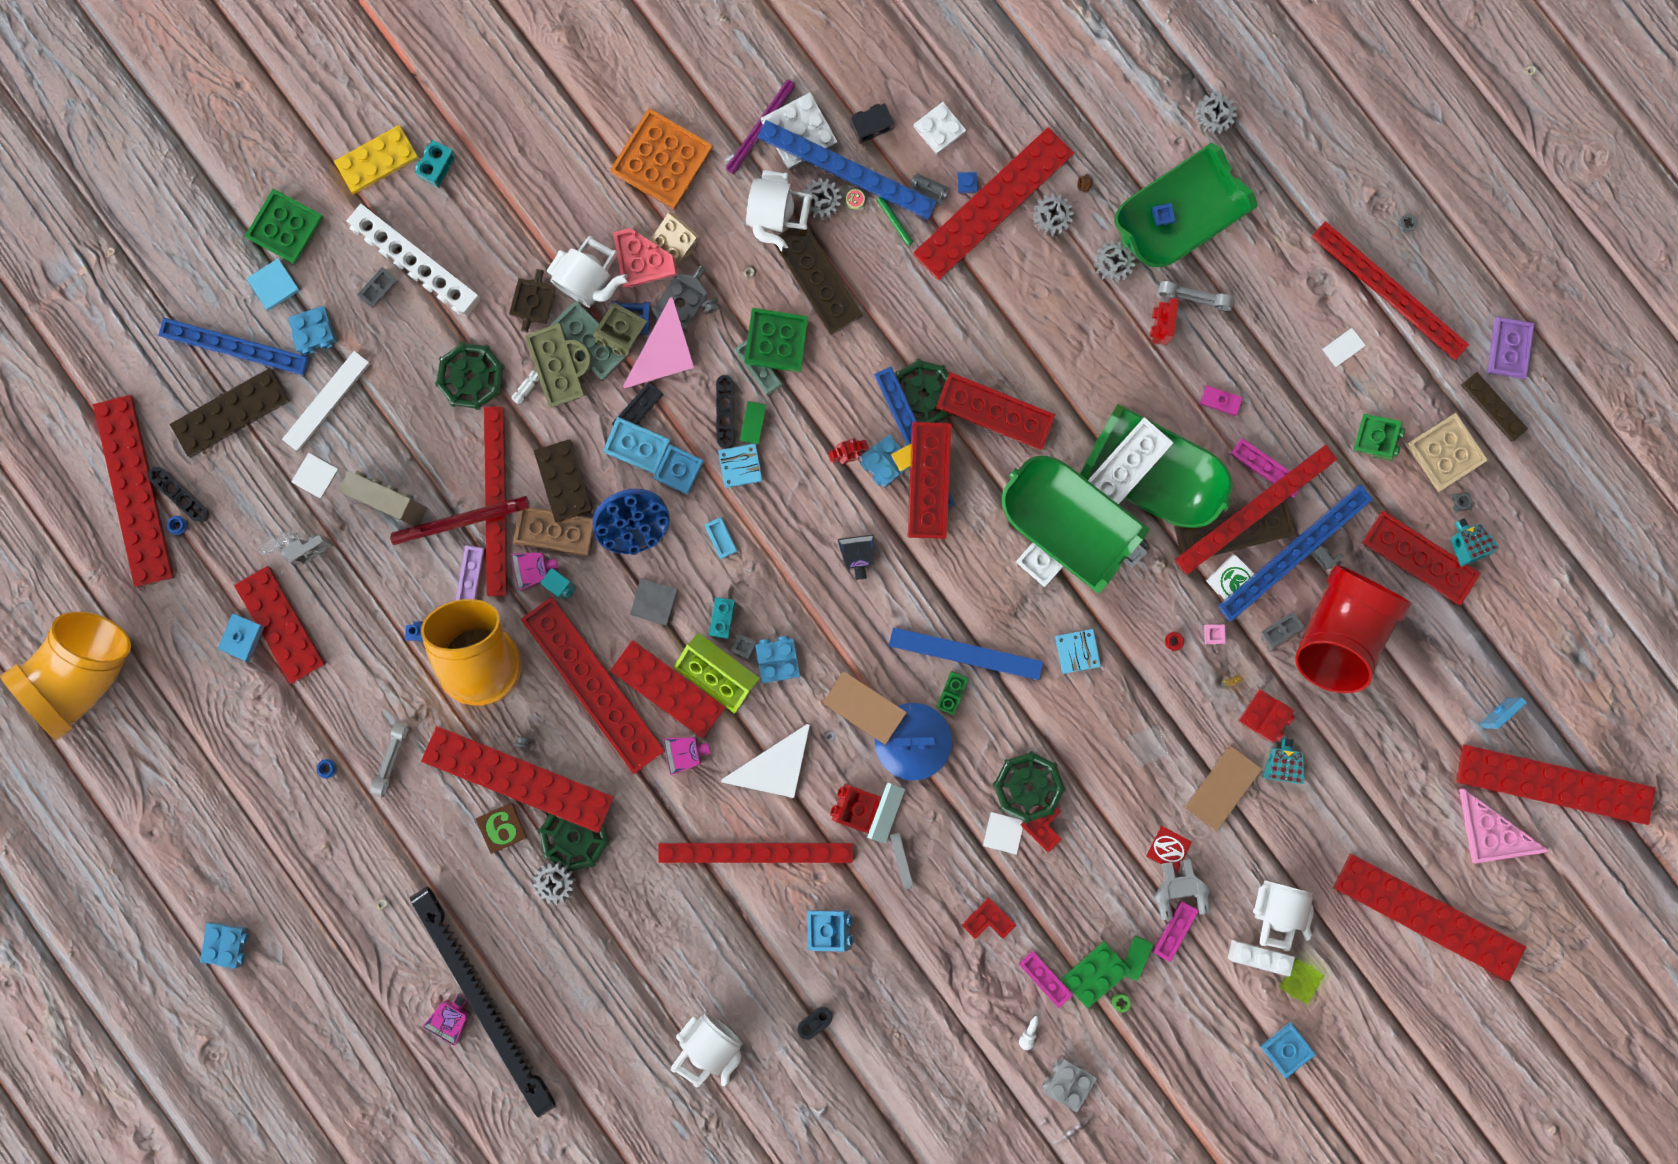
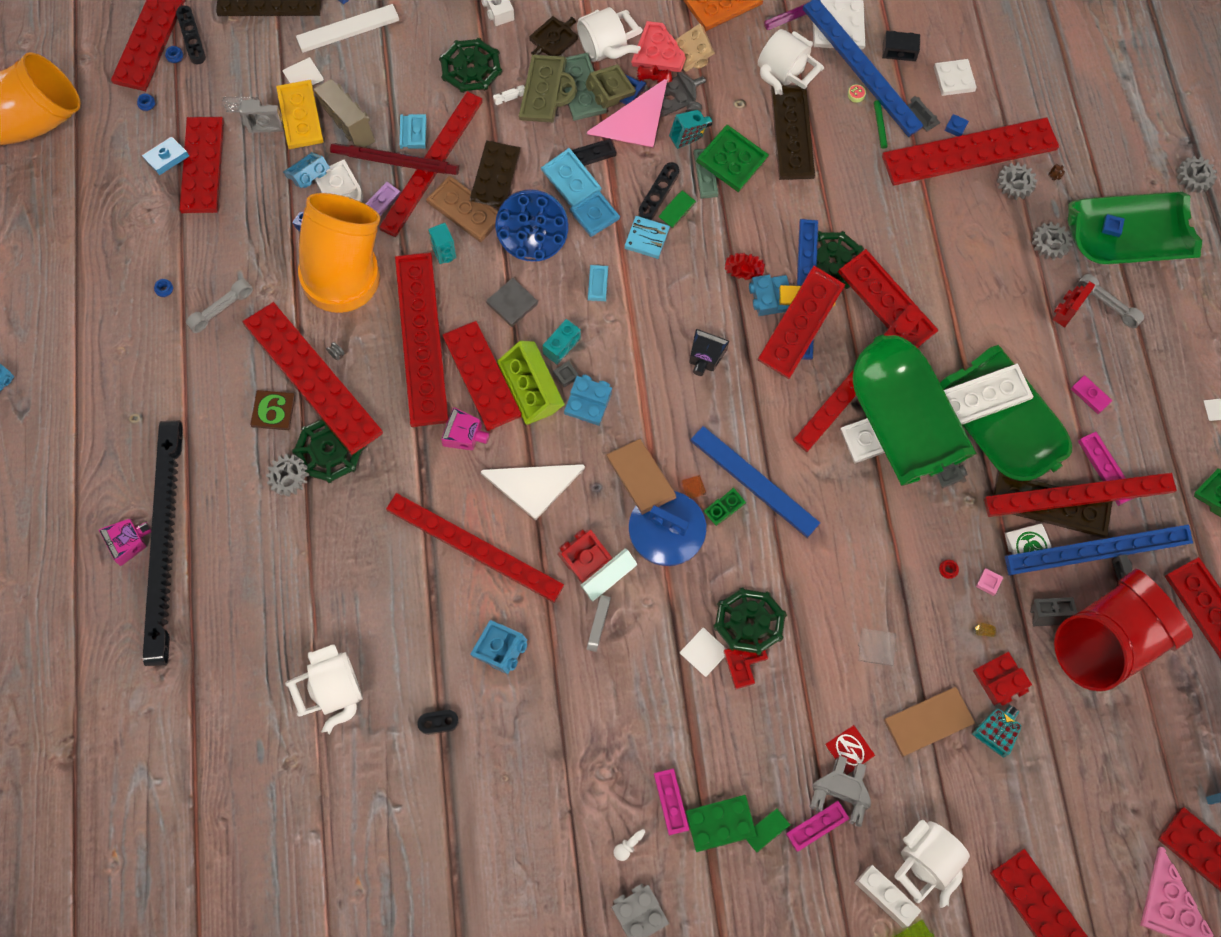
camera: 25 degrees right, 15 degrees down
(178, 591) = (144, 98): none -> blue plate
(339, 521) = (299, 114): none -> yellow plate
(384, 578) = (307, 169): none -> dark azure plate
(422, 575) = (340, 181): none -> white tile
(458, 479) = (413, 131): none -> medium azure plate
(531, 569) = (422, 220): dark pink torso -> none
(654, 289) = (654, 74): none -> red connector
(718, 330) = (688, 128): none -> teal torso
(828, 201) = (829, 79): light grey gear -> none
(915, 689) = (693, 487): none -> clear orange plate
(988, 915) = (652, 715): red plate -> none
(1001, 527) = (845, 392): none -> red plate
(1077, 651) = (856, 532): medium azure tile -> none
(1126, 1006) = (736, 862): bright green bush -> none

